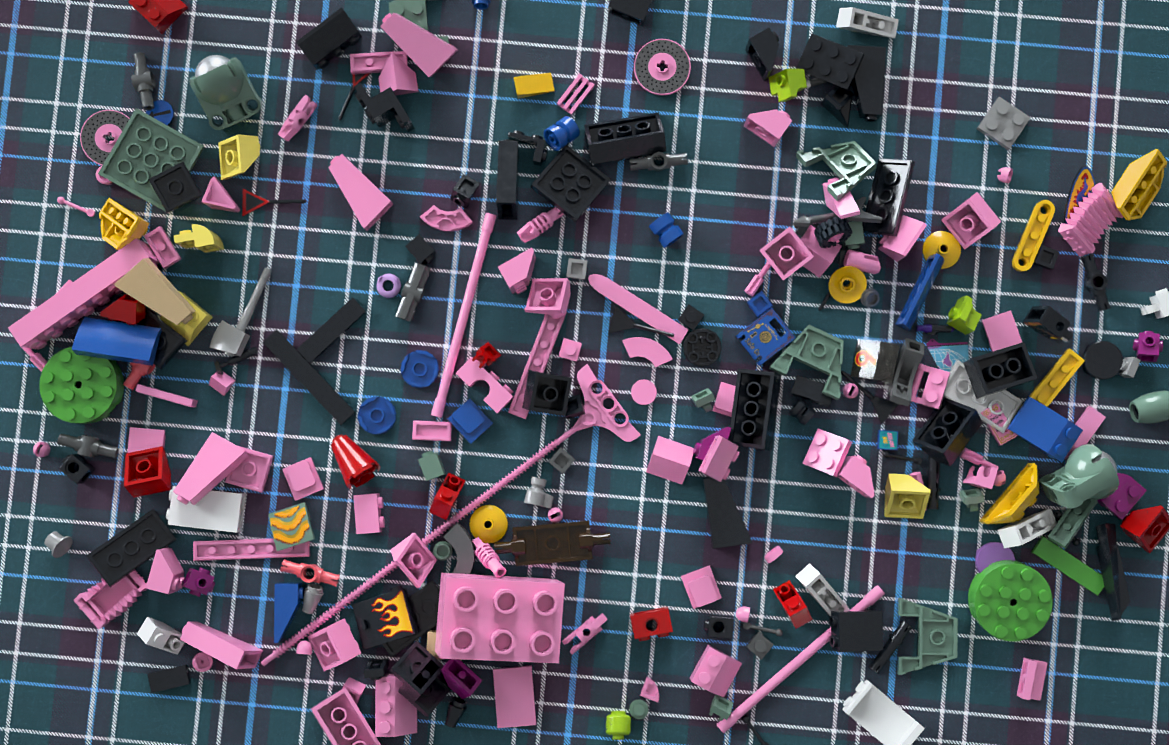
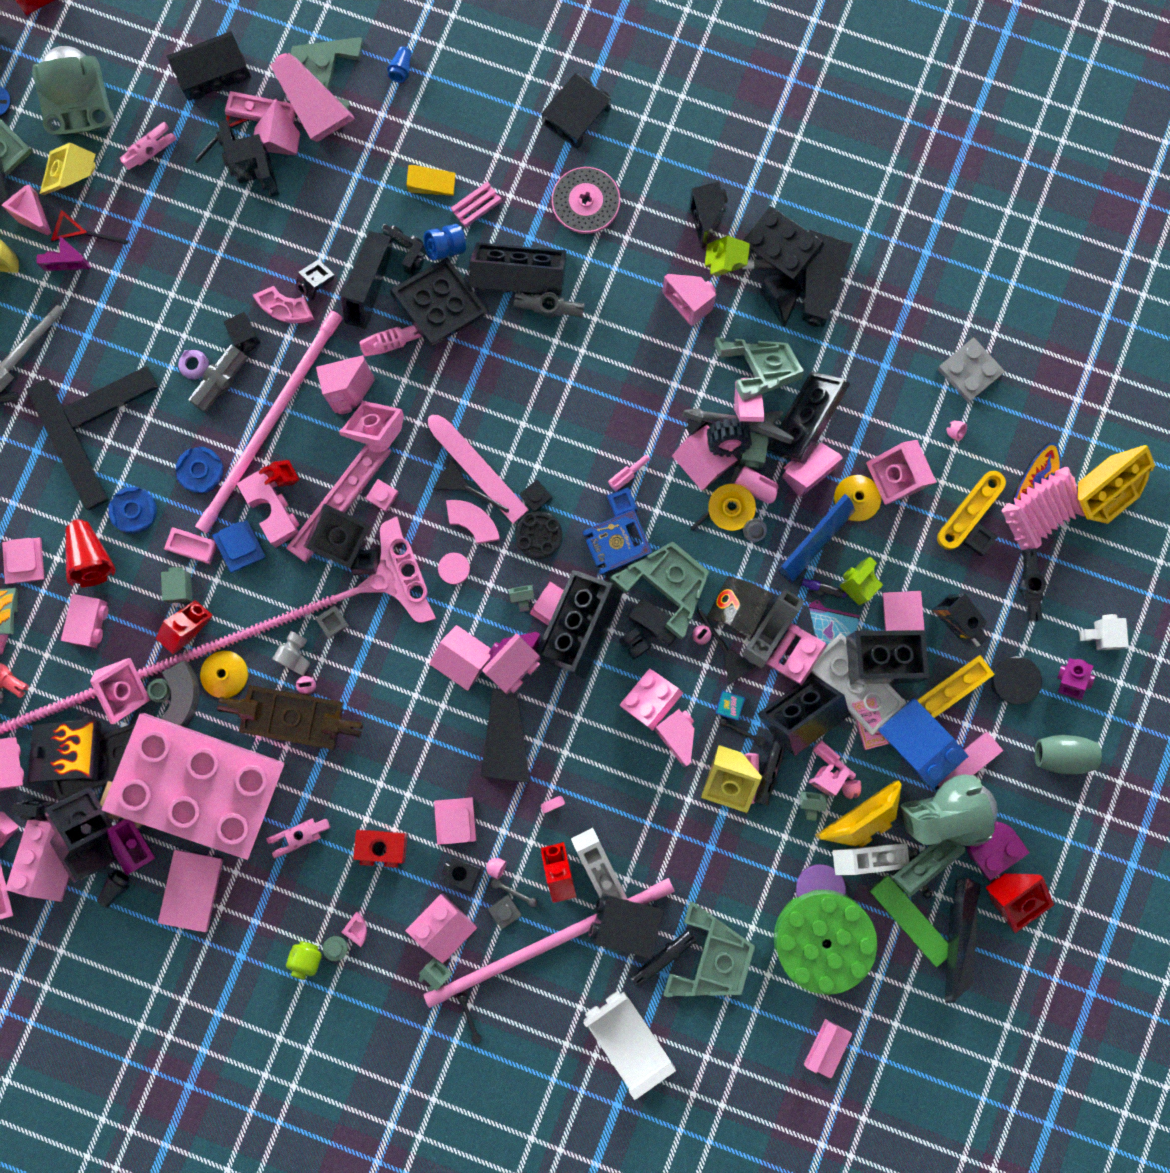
camera: 15 degrees right, 5 degrees down
(263, 228) = (65, 260): none -> magenta slope
(362, 195) = (193, 252): bright pink slope -> none
(488, 557) = (207, 711): bright pink hinge -> none
(577, 269) = (417, 403): light grey plate -> none
(666, 230) = (534, 383): blue wheel -> none
(786, 253) = (667, 449): bright pink slope -> none
(867, 22) = (839, 211): white slope -> none
(1129, 367) = (1046, 697): light grey plate -> none

